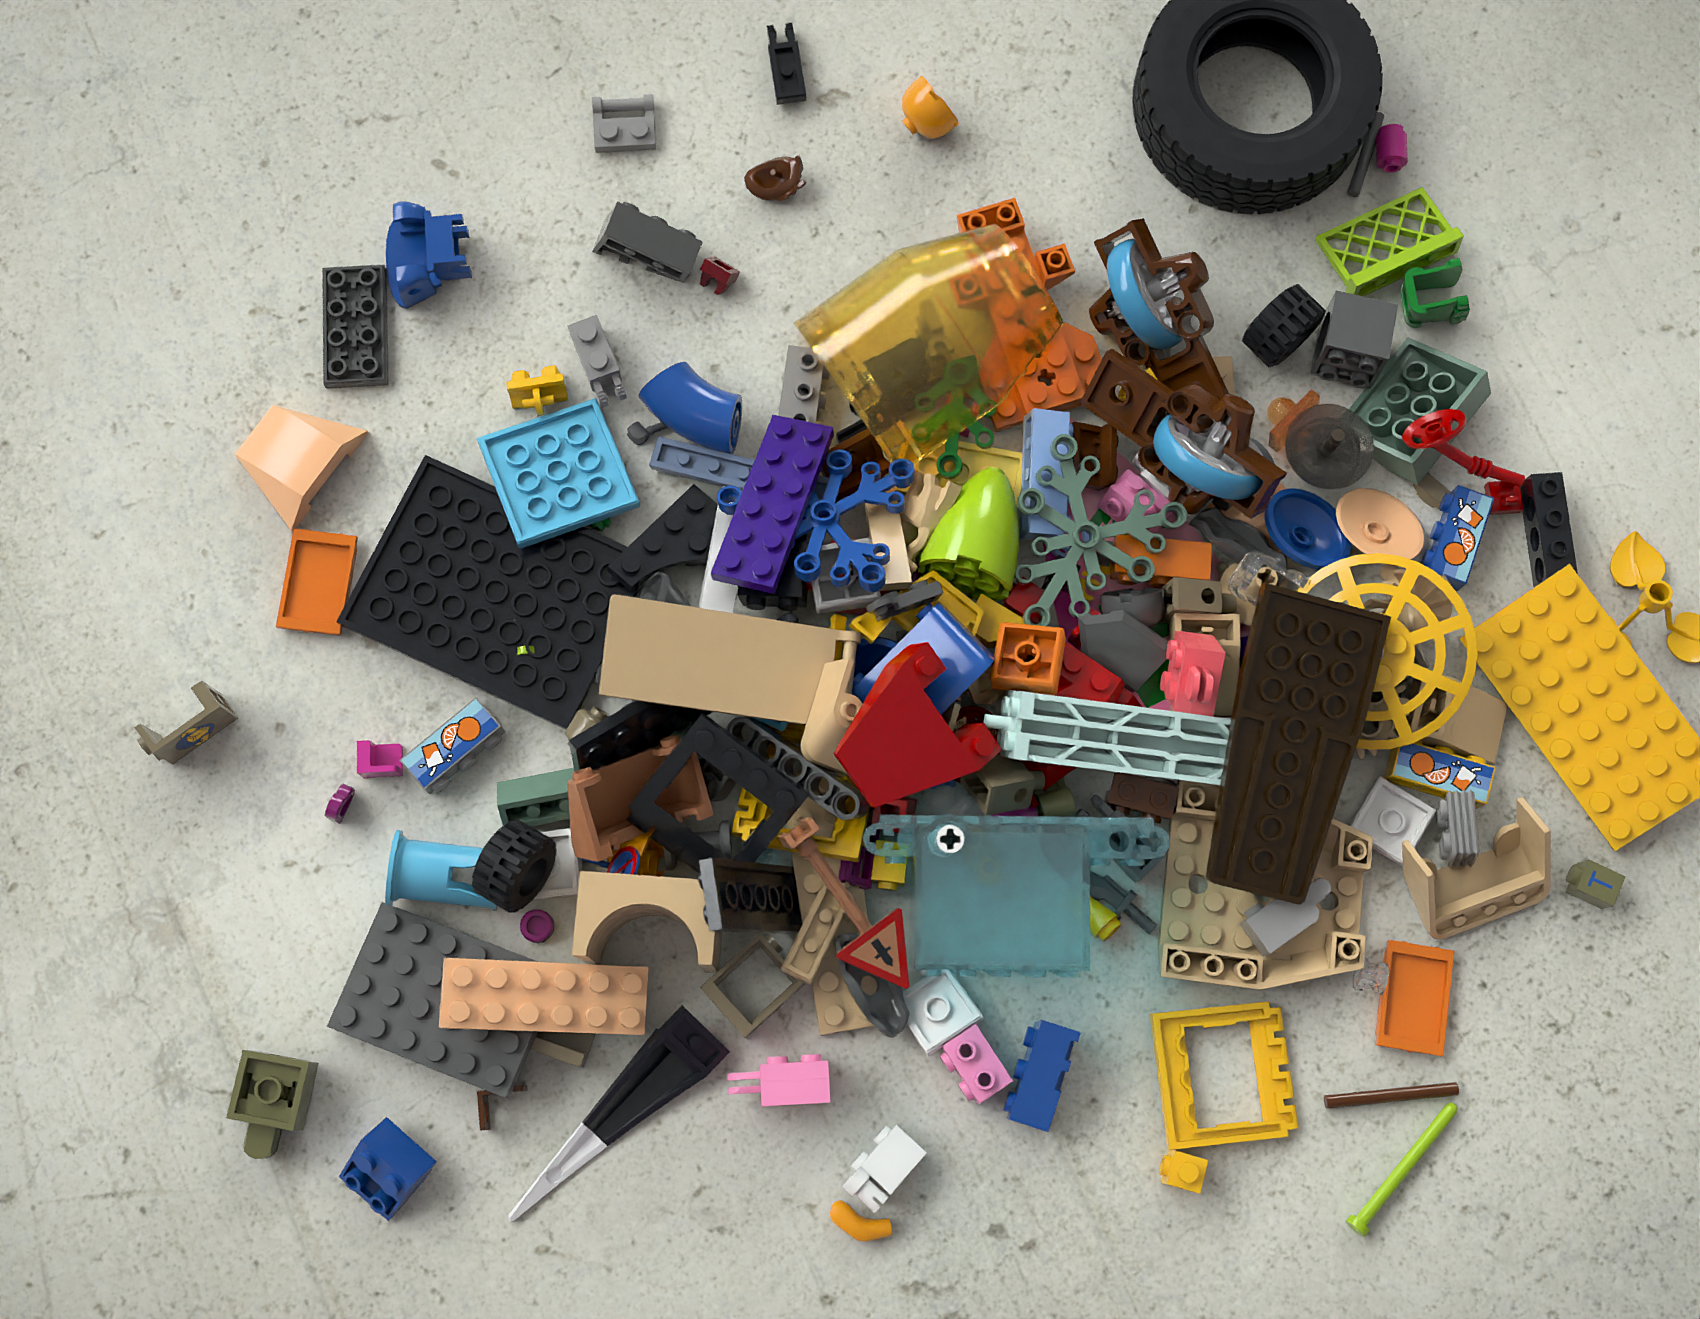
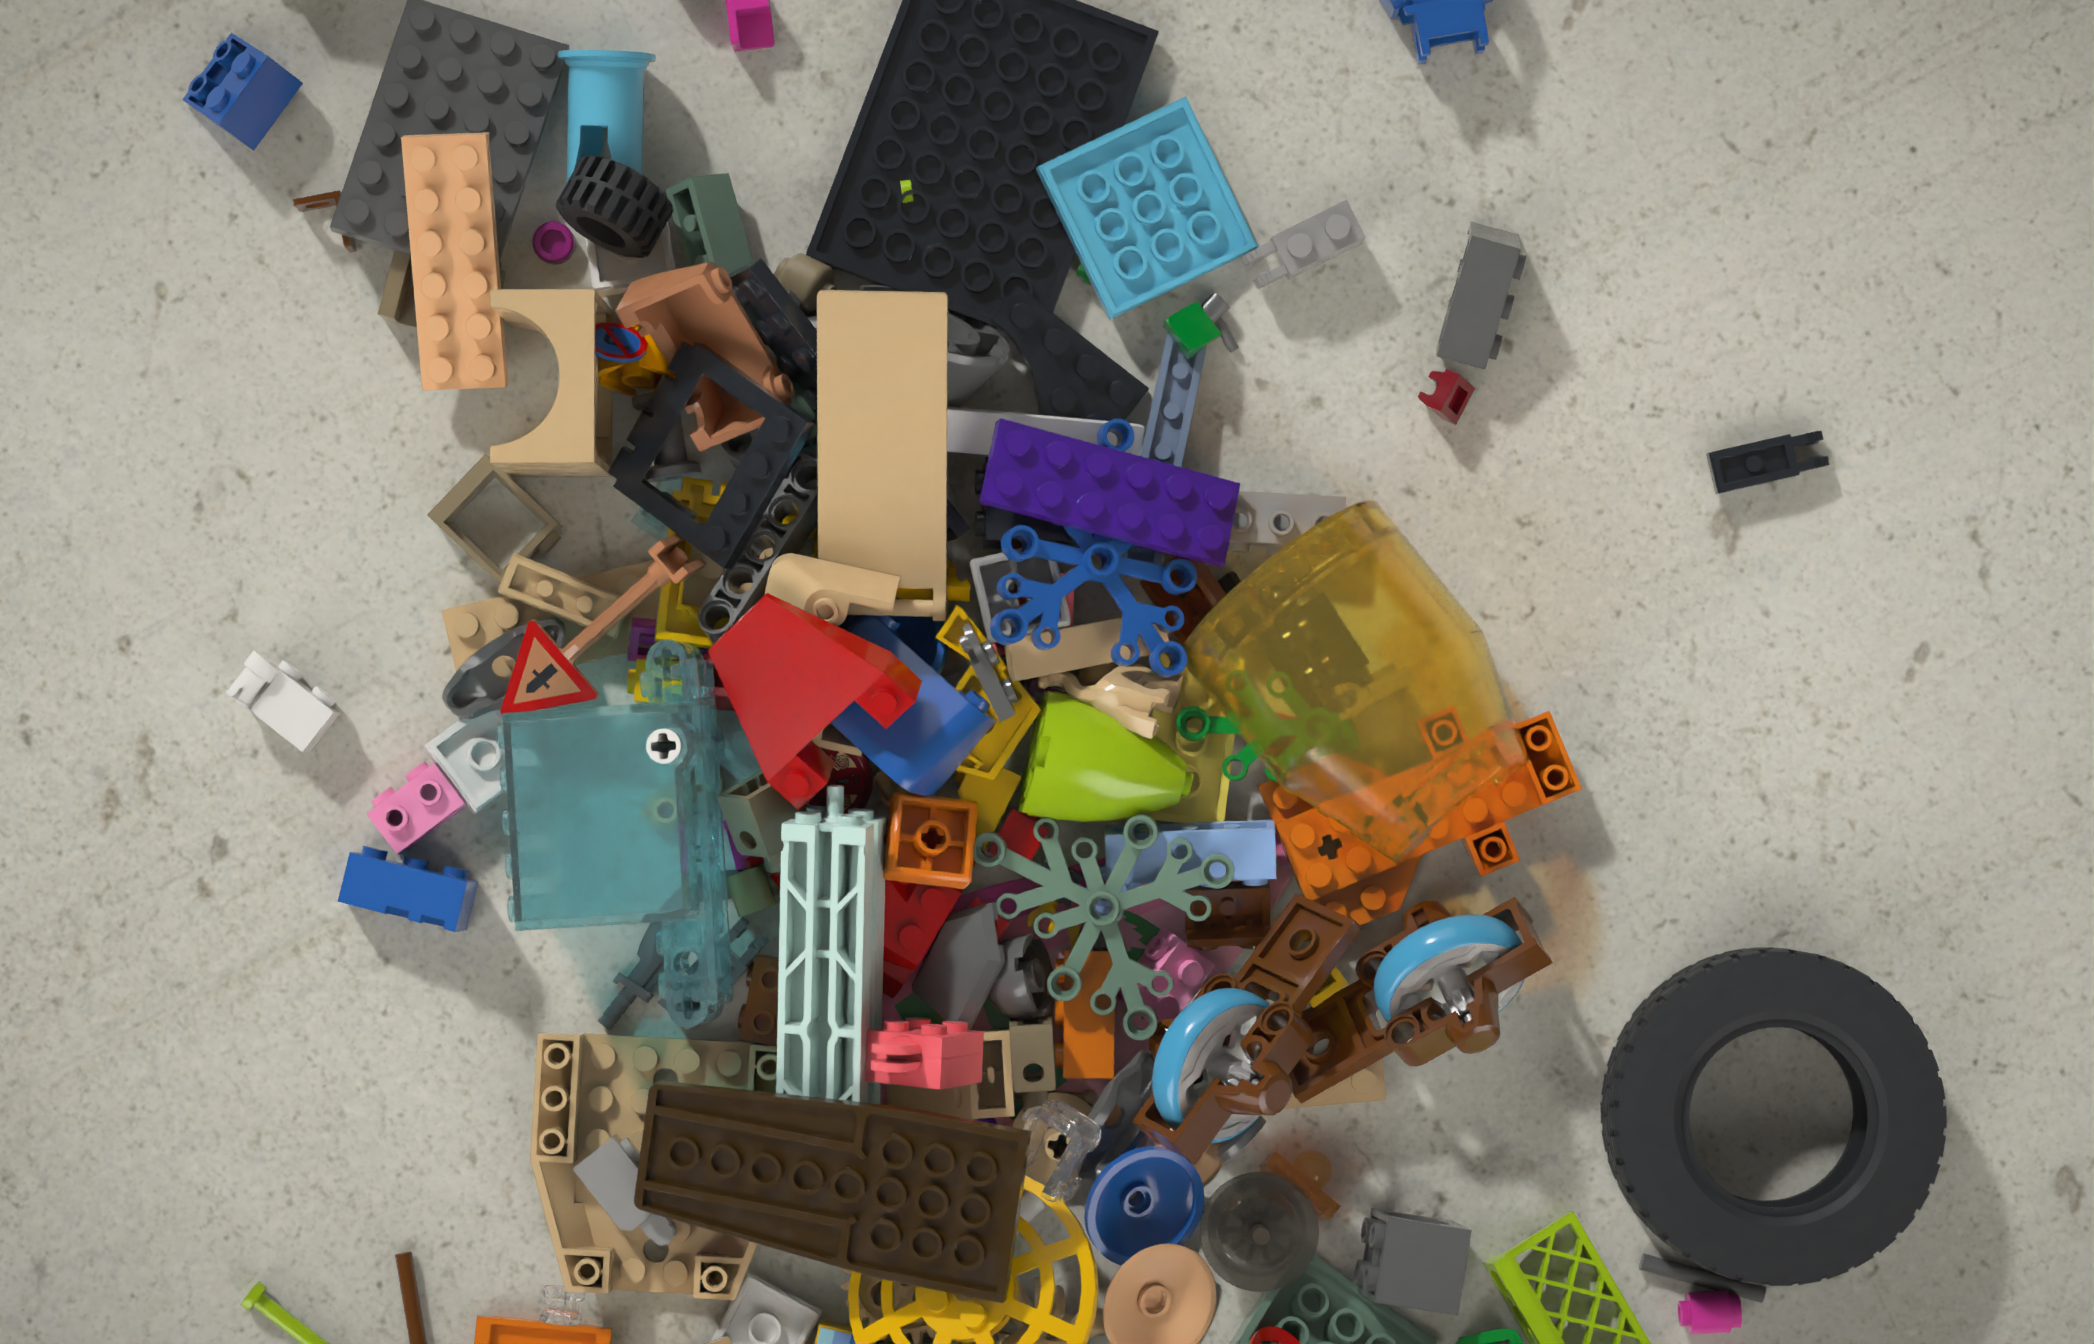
camera: 90 degrees right, 10 degrees up
(453, 747) = (772, 113): brick -> none
(537, 391) = (1256, 168): yellow hips -> none
(626, 132) = (1646, 249): light grey plate -> none
(653, 446) = (1191, 329): none -> green slope
(662, 1069) = (382, 414): black plate -> none
(694, 407) = (1246, 382): blue brick -> none
(749, 897) = (584, 505): black plate -> none
(775, 178) = (1592, 460): reddish brown hat -> none
(788, 1082) = (376, 572): bright pink brick -> none
(857, 1226) = (212, 674): light orange arm -> none
(926, 111) = (1706, 661): light orange cylinder -> none
(1102, 920) = (612, 953): yellow cone -> none
(1176, 1084) = (419, 1062): yellow hinge -> none
(1183, 1171) = (303, 1073): yellow brick -> none
(1283, 325) = (1424, 1164): black tyre -> none

